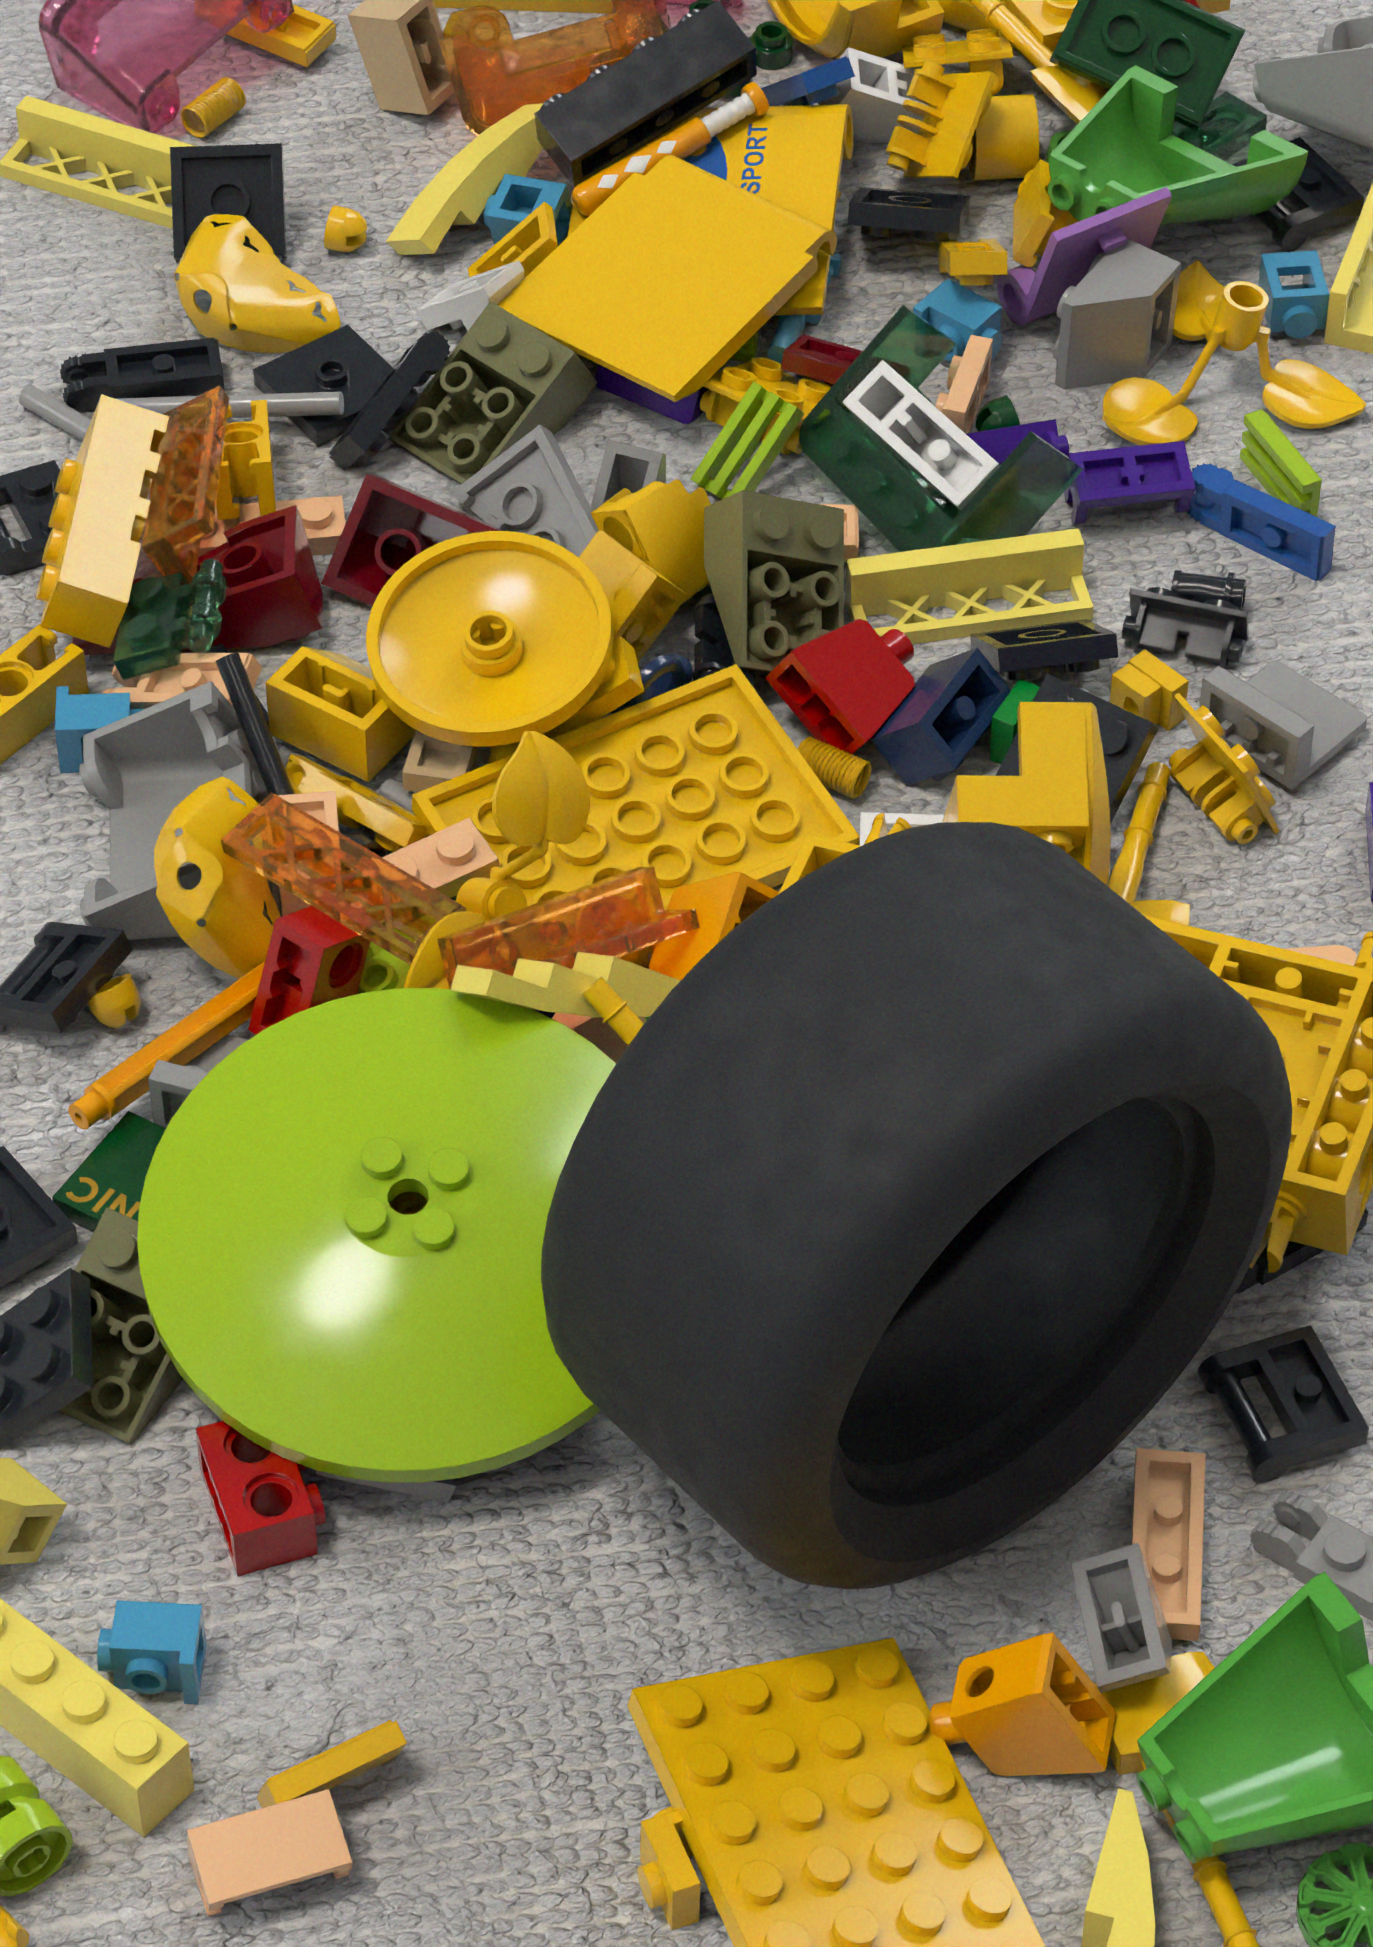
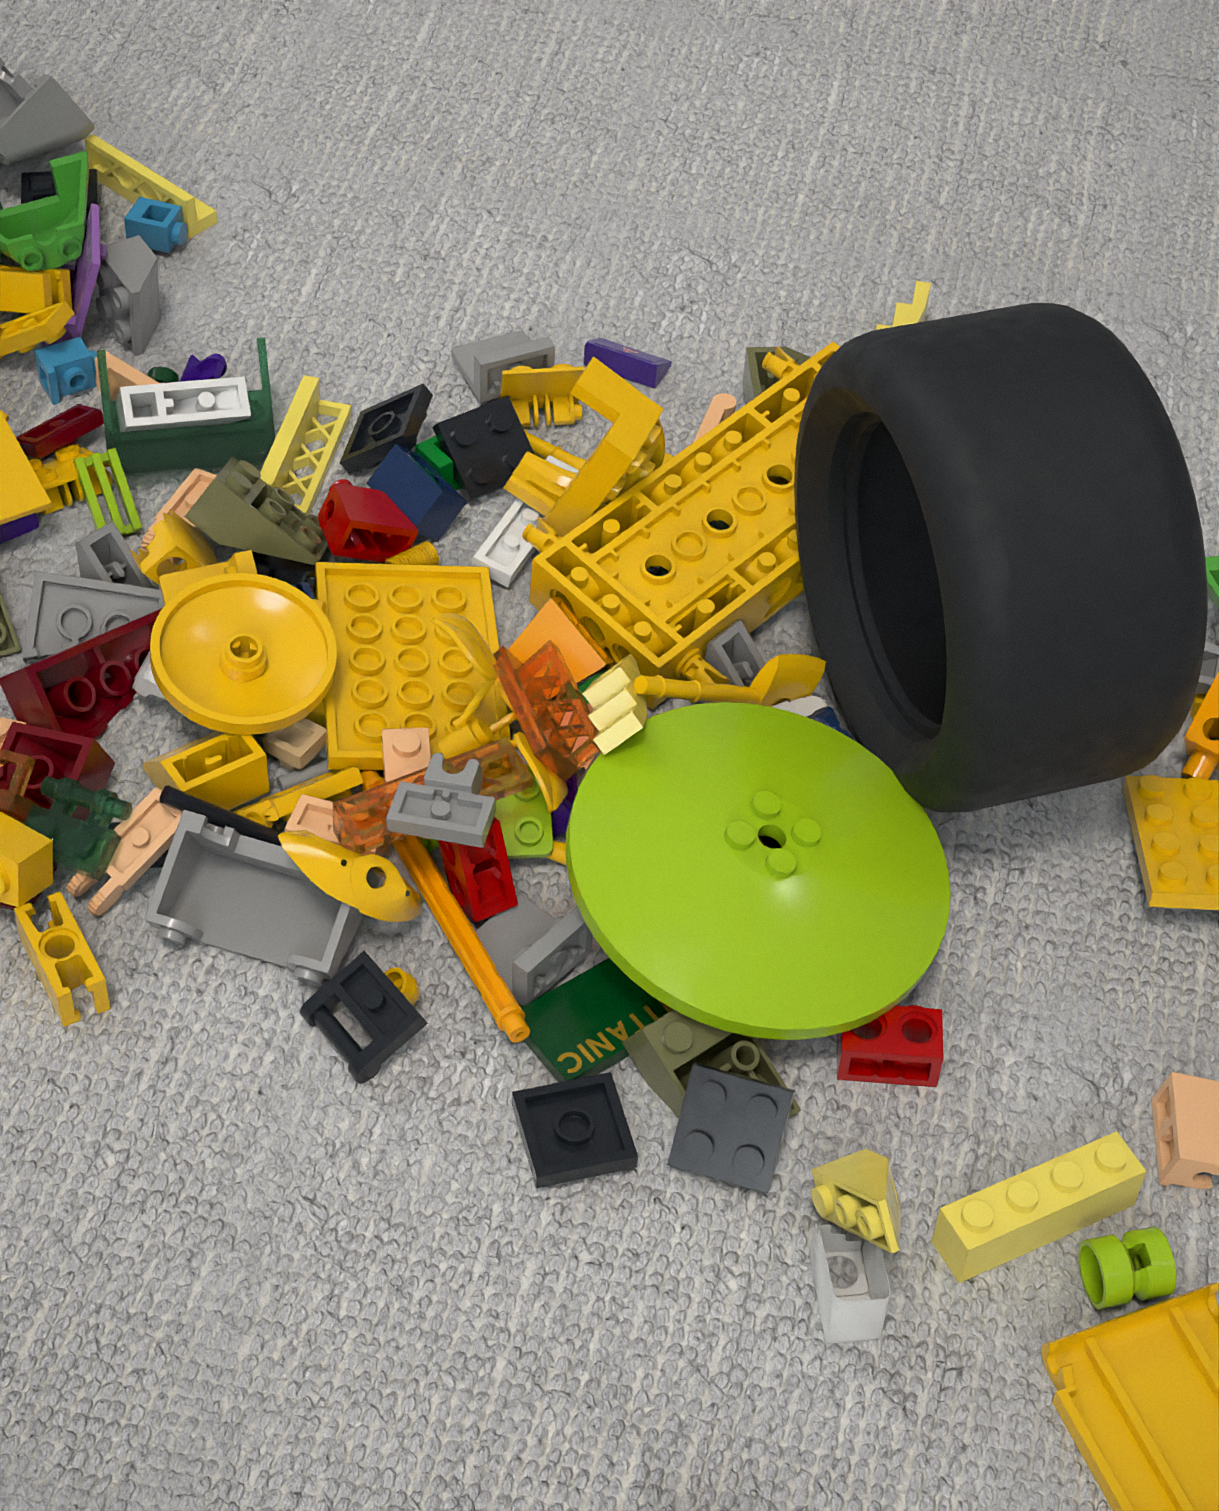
camera: 70 degrees left, 0 degrees up
(81, 715) = (121, 923): dark azure brick -> none
(155, 1648) = (1004, 1138): dark azure brick -> none
(299, 880) = (445, 806): none -> light grey plate
(335, 1765) = (1136, 1076): yellow tile -> none
(1131, 477) = (279, 333): dark purple hinge -> none
(1148, 690) = (447, 401): yellow piece -> none
(1206, 587) = (382, 348): black pin -> none
(1213, 627) = (407, 362): black hinge -> none
(1233, 319) = (230, 259): yellow plant -> none
(1262, 522) = (334, 311): blue hinge -> none
(1279, 464) = (298, 292): lime tile -> none

